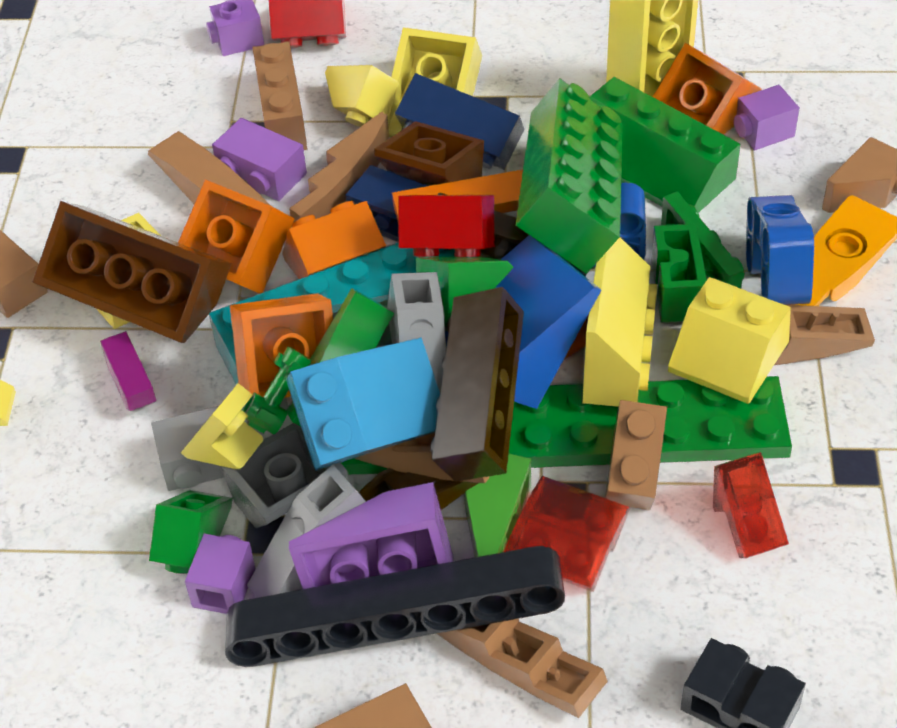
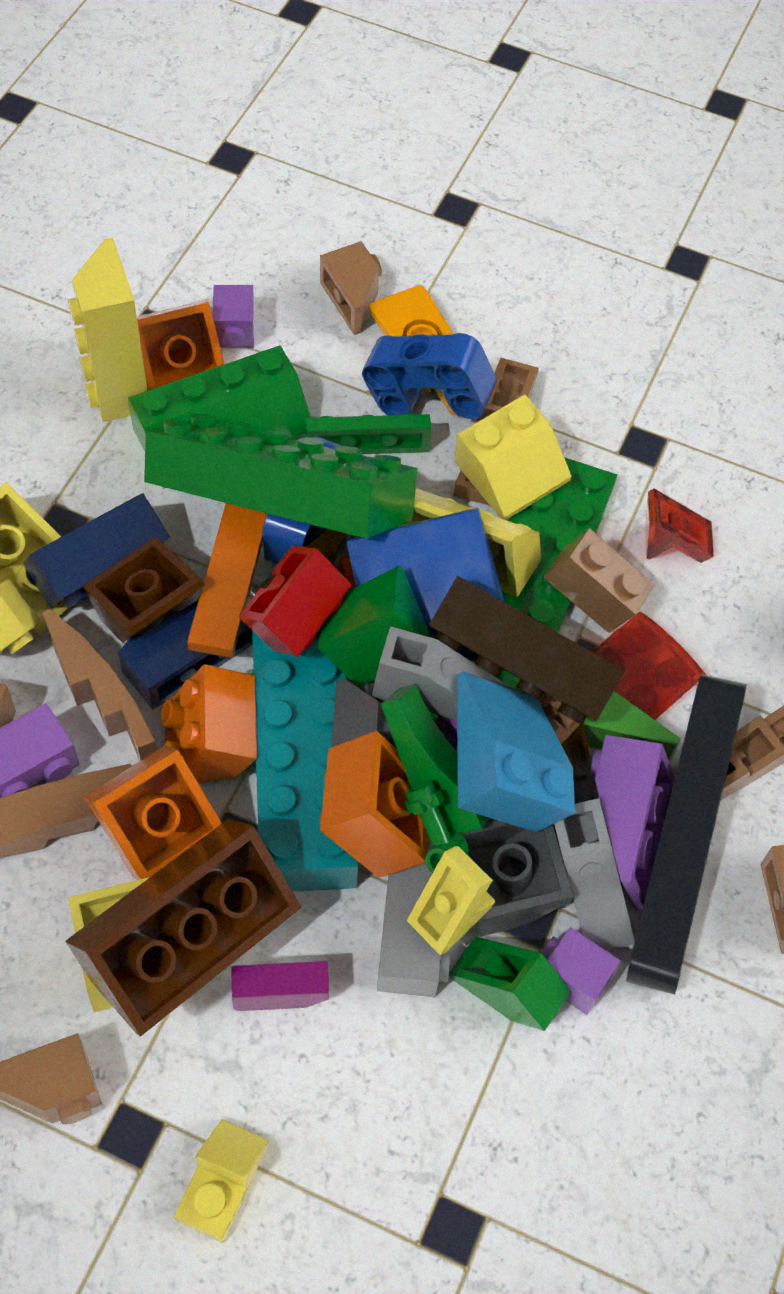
camera: 75 degrees left, 10 degrees up
(676, 269) = (413, 449): green brick -> none

